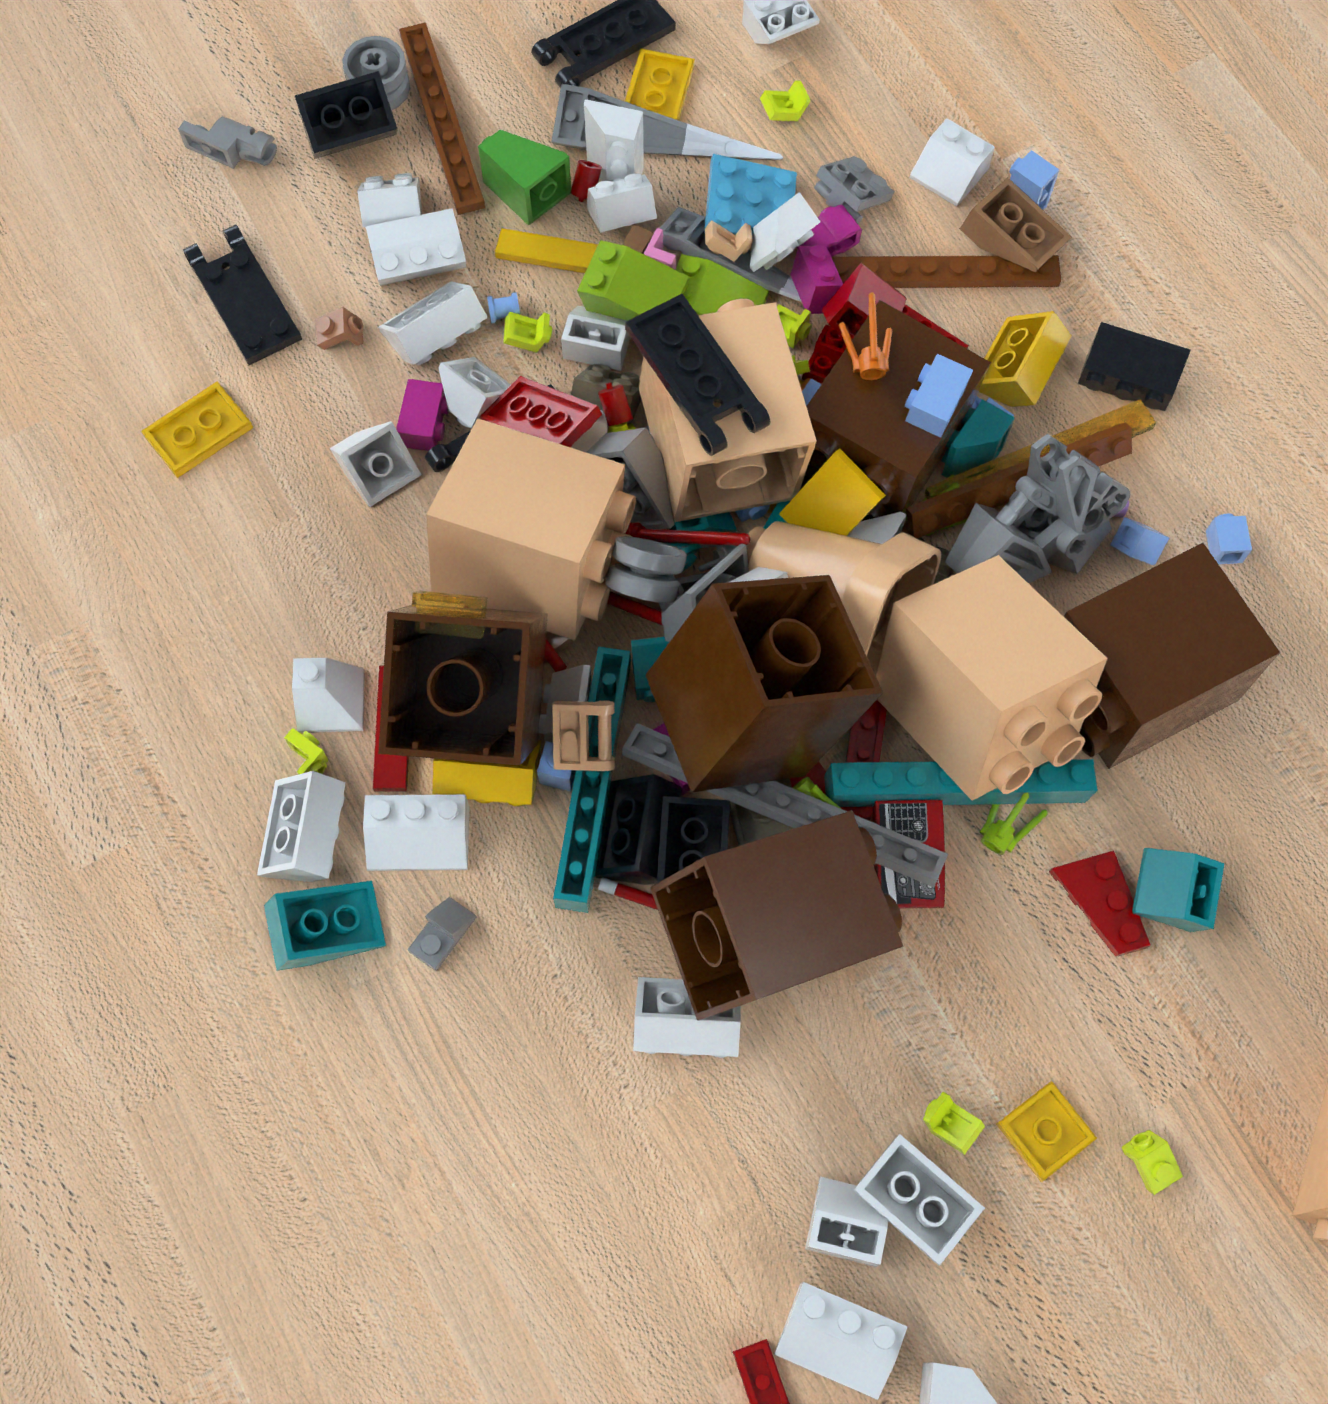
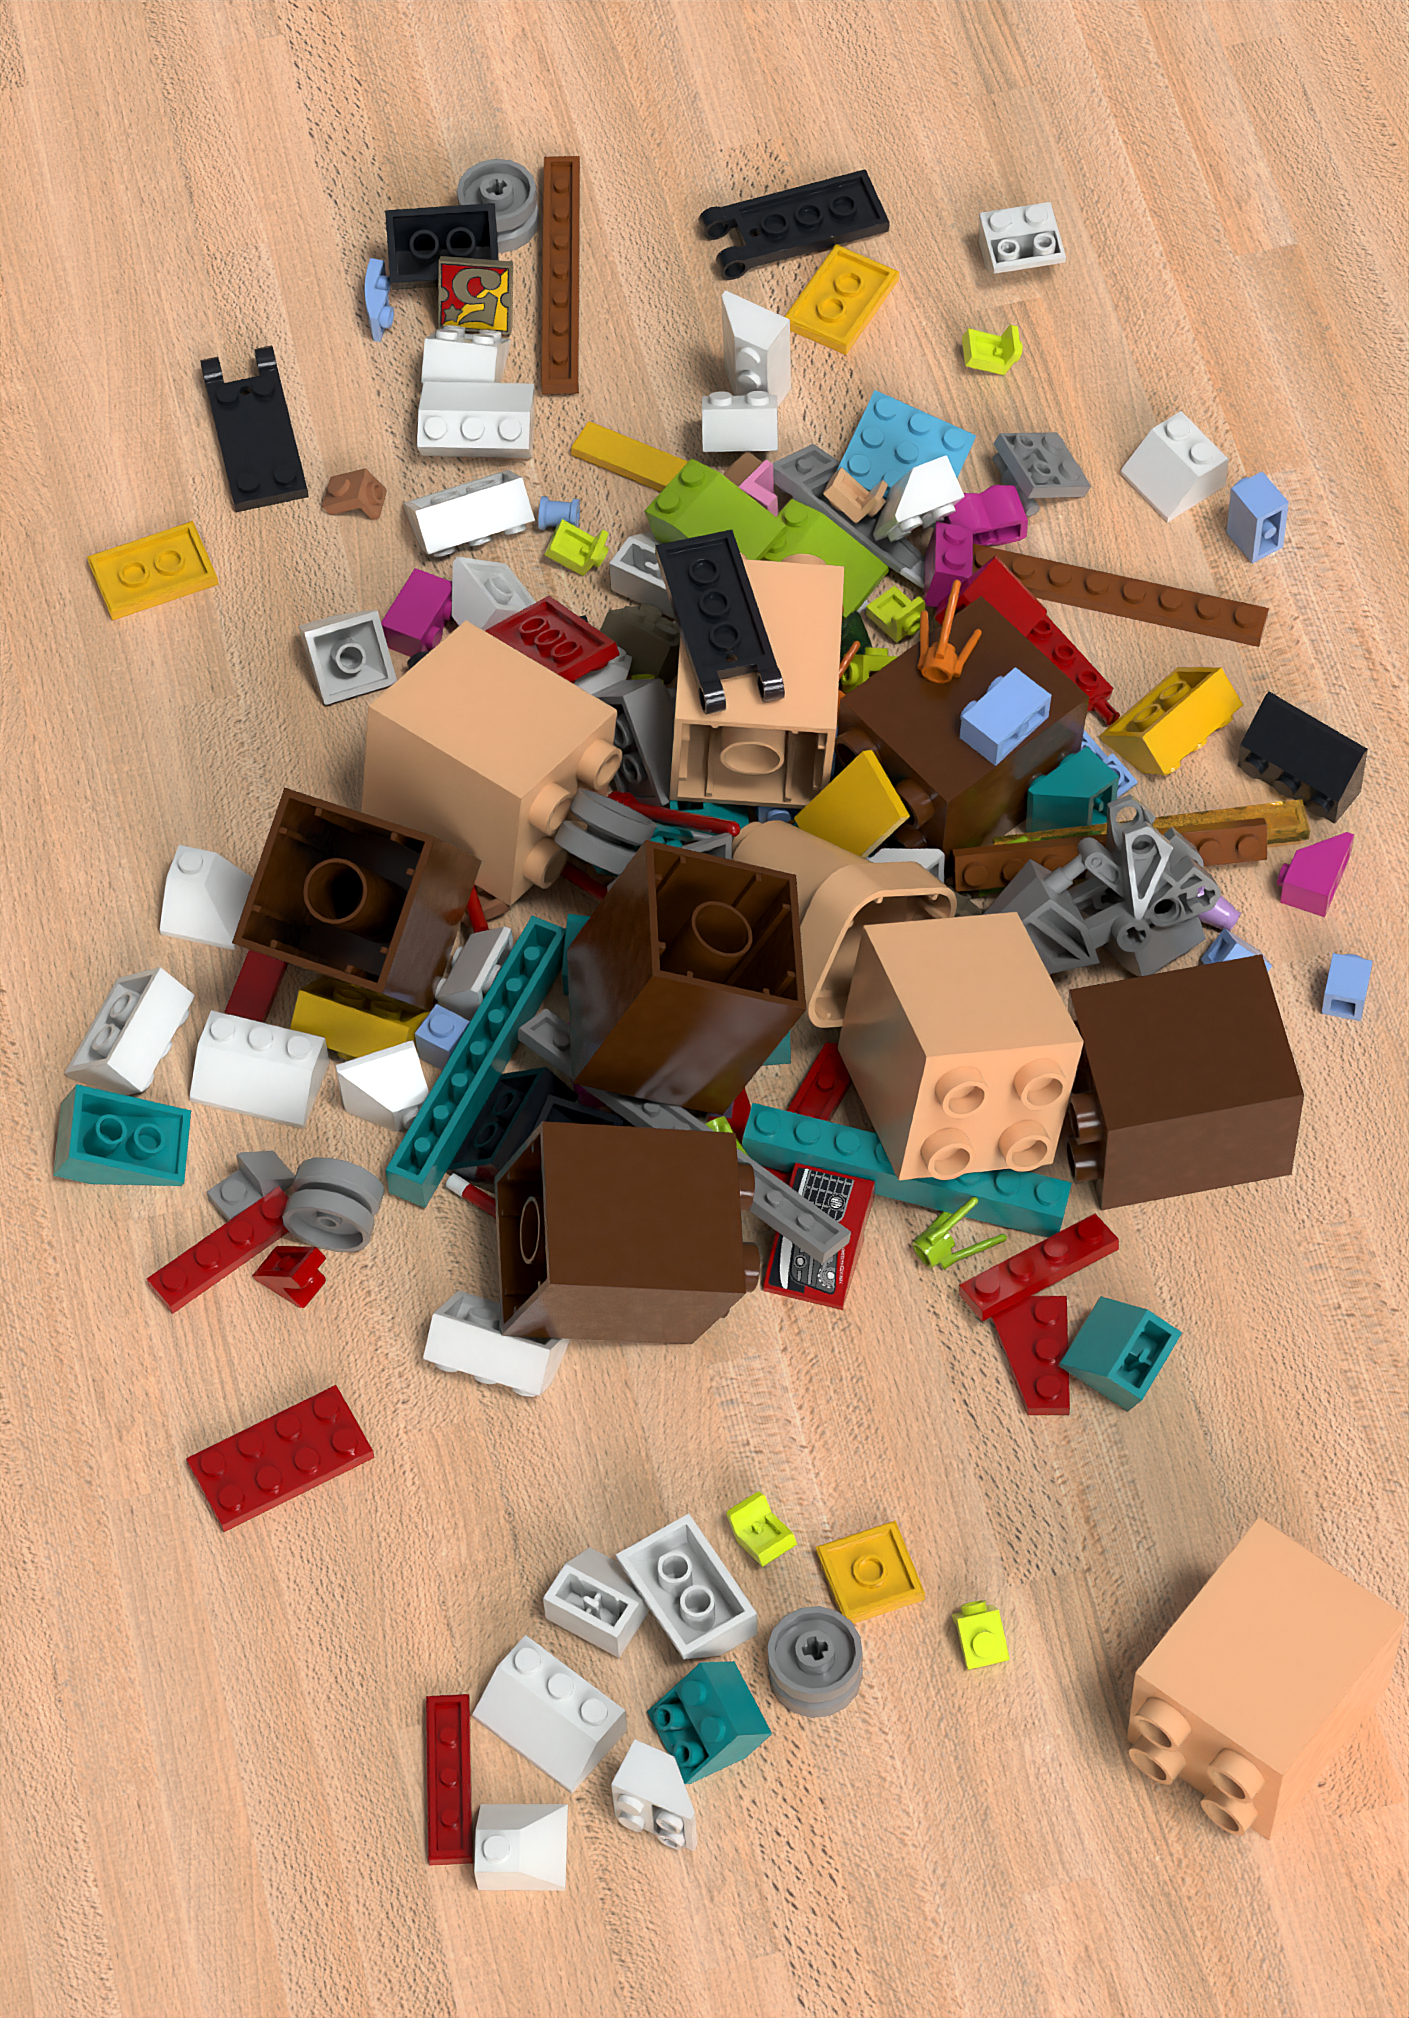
camera: 20 degrees right, 10 degrees down
(229, 142) = (295, 248): light grey plate -> none
(307, 747) = (164, 949): neon yellow bracket -> none
(311, 179) = (376, 297): none -> light blue slope
(383, 147) = (475, 294): none -> tile
(438, 995) = (221, 1252): none -> red plate
(450, 603) = (363, 803): clear yellow panel -> none
(499, 1001) = (292, 1273): none -> red slope
(518, 938) = (333, 1204): none -> light grey wheel
(524, 173) = (636, 363): bright green slope -> none
(529, 823) = (384, 1086): none -> white slope
(541, 1169) = (280, 1458): none -> red plate
(572, 735) = (463, 998): light nougat plate -> none
(586, 176) = (709, 380): red piece -> none
(615, 404) = (645, 651): red piece -> none
(660, 132) = (812, 346): light grey plate -> none
(970, 1306) = (709, 1720): none -> teal slope
(1014, 227) = (1218, 560): medium nougat slope -> none
(1058, 1223) = (815, 1661): none -> light grey wheel
(1084, 833) = (1038, 1267): none -> red plate
(1172, 457) = (1315, 874): none -> dark pink slope

